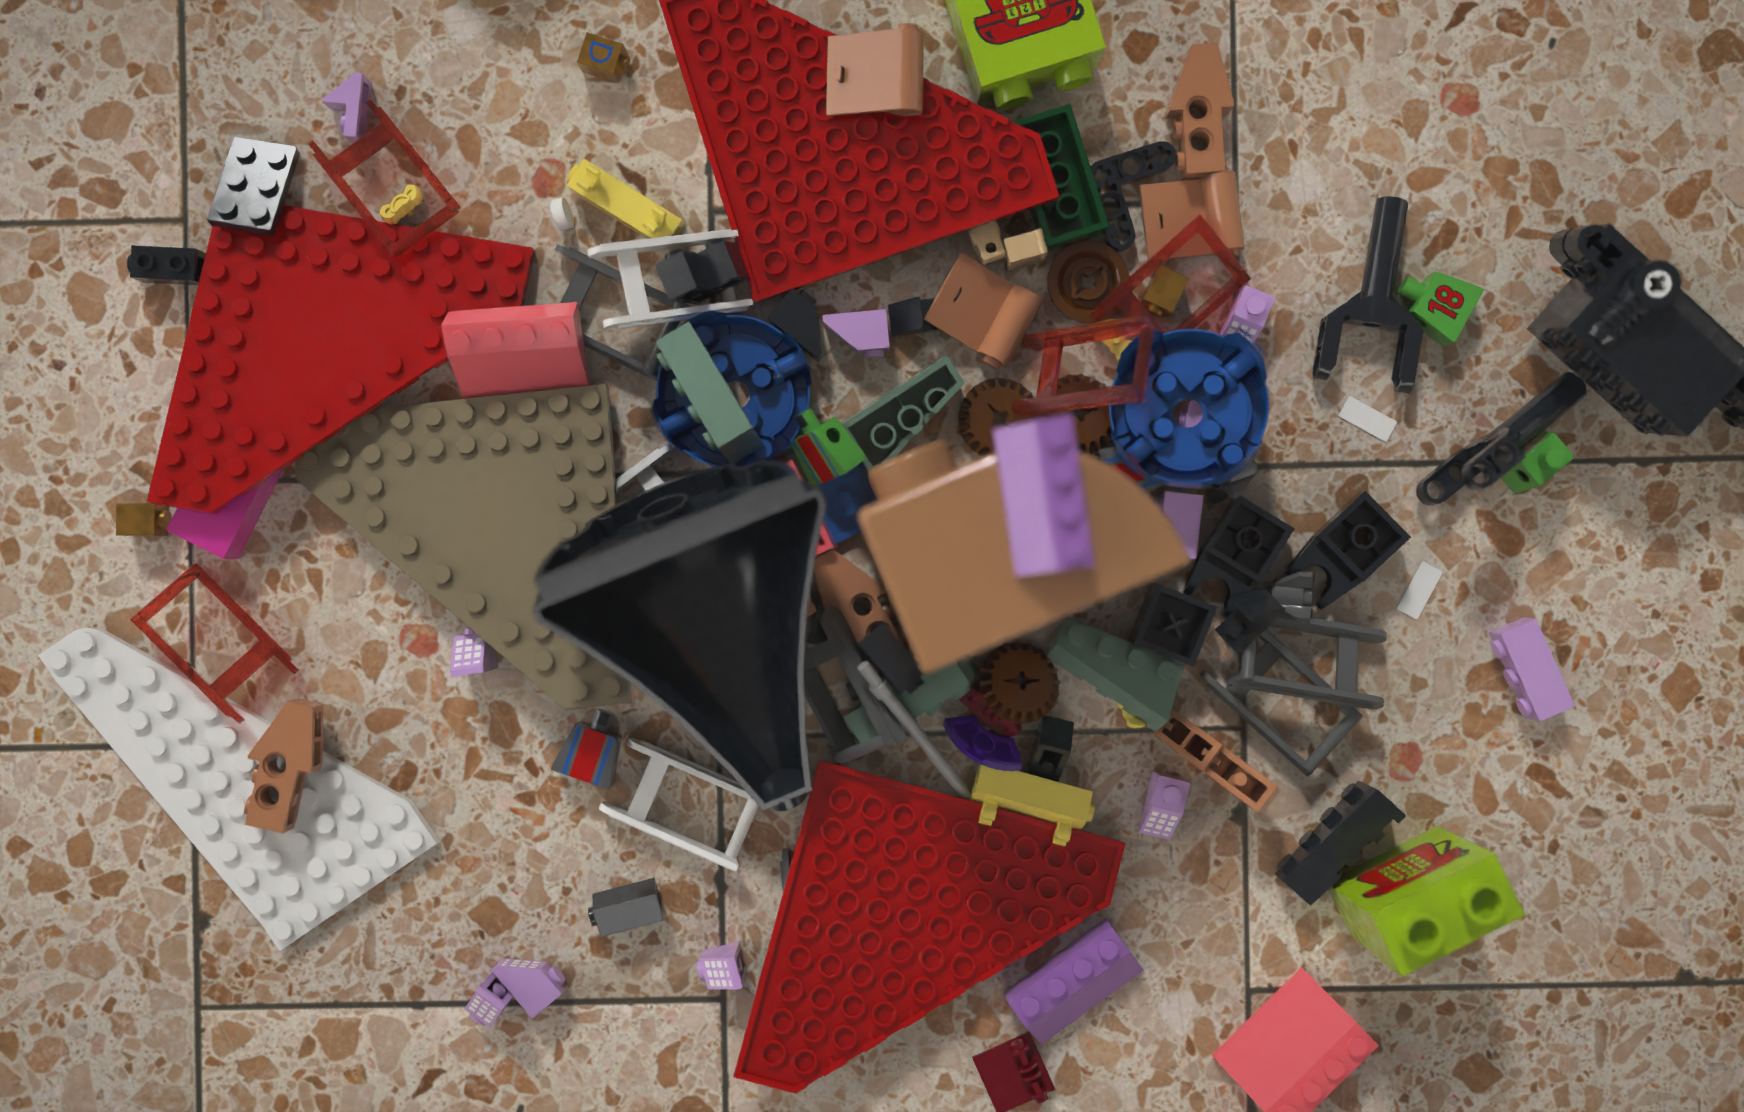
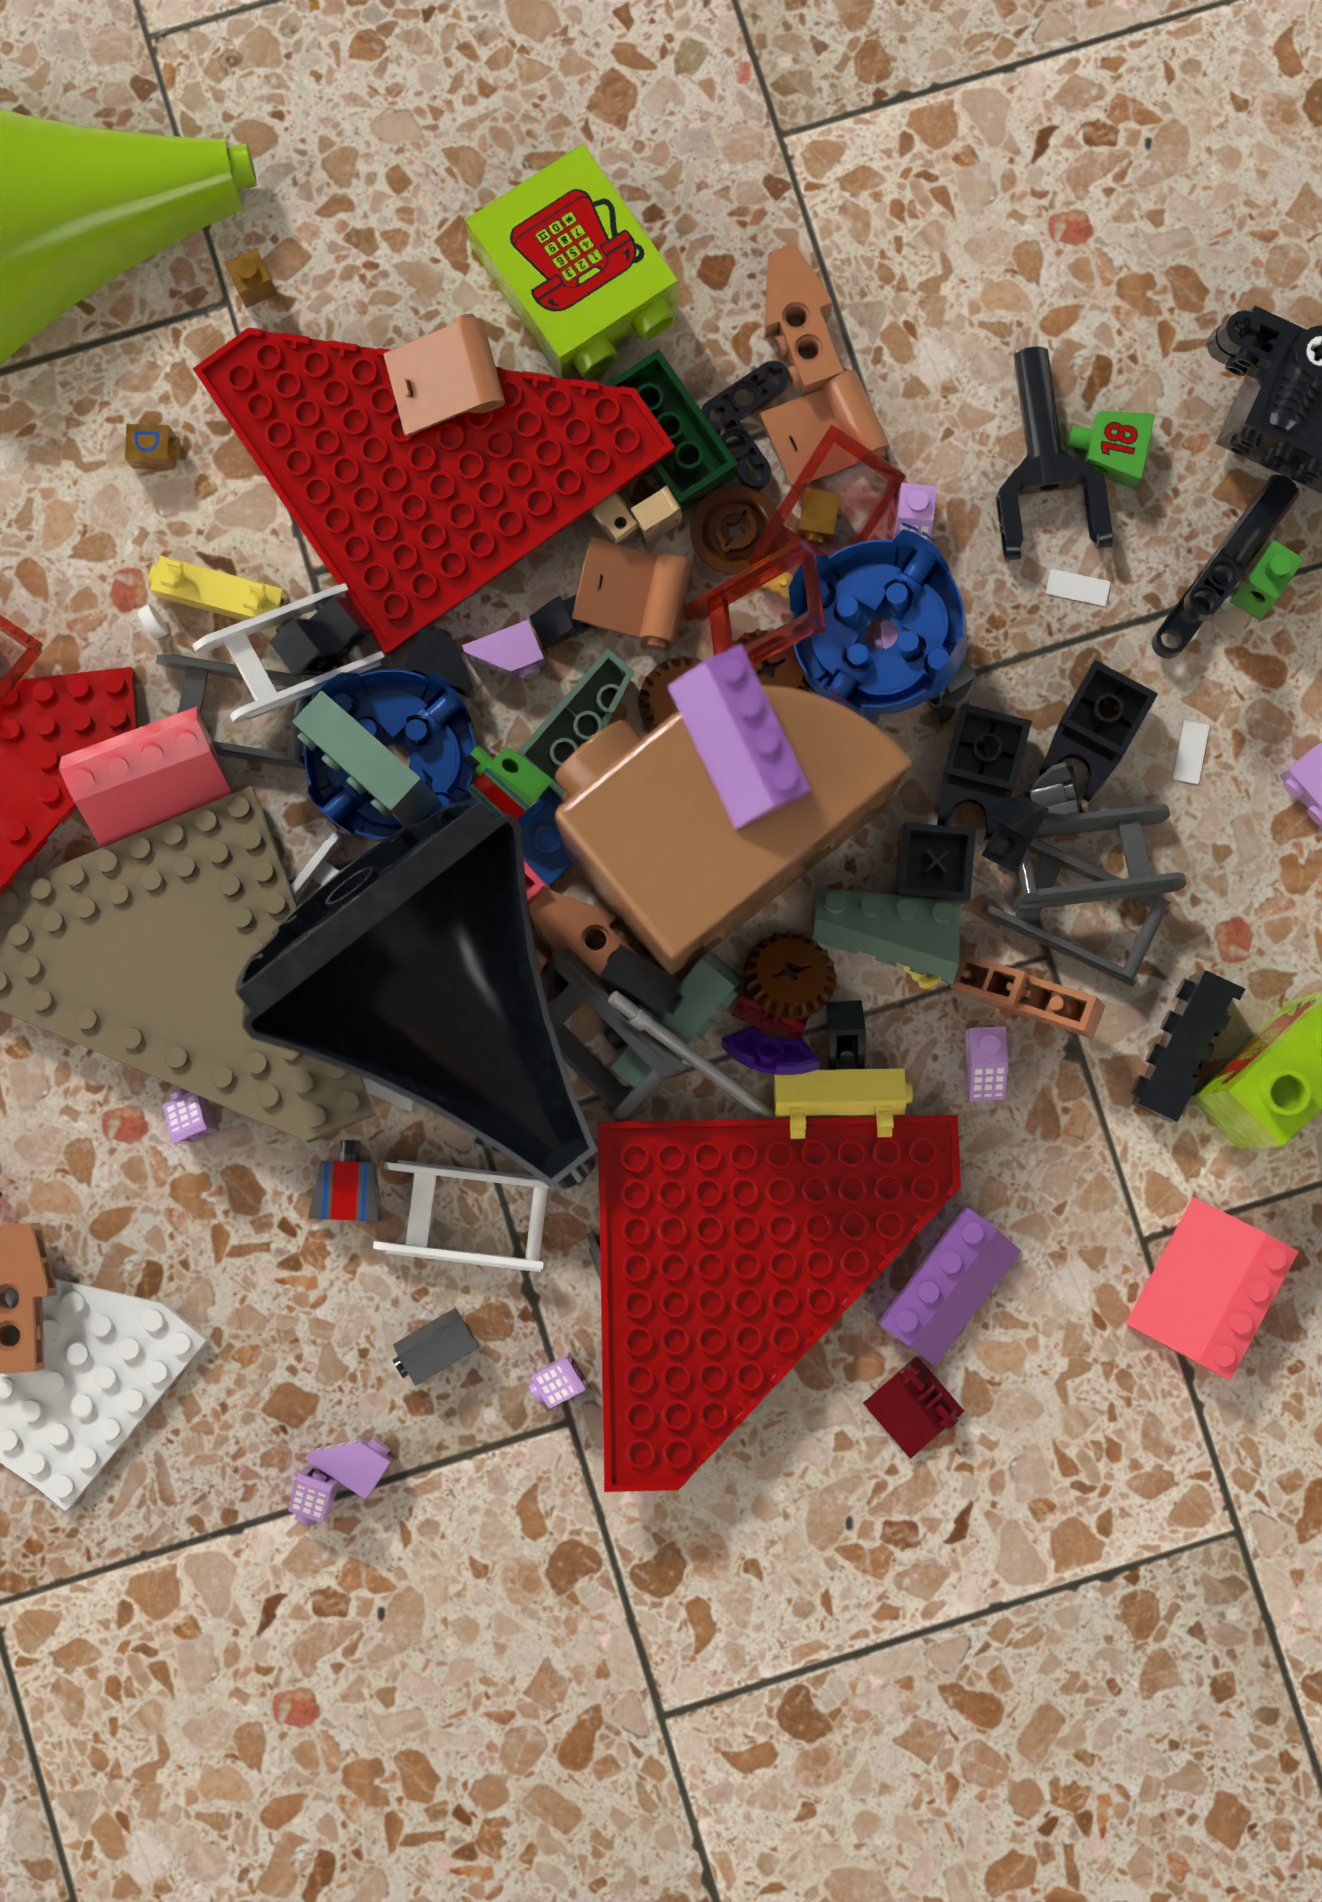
camera: 15 degrees left, 5 degrees down
(1185, 516) = (914, 740): lavender slope -> none

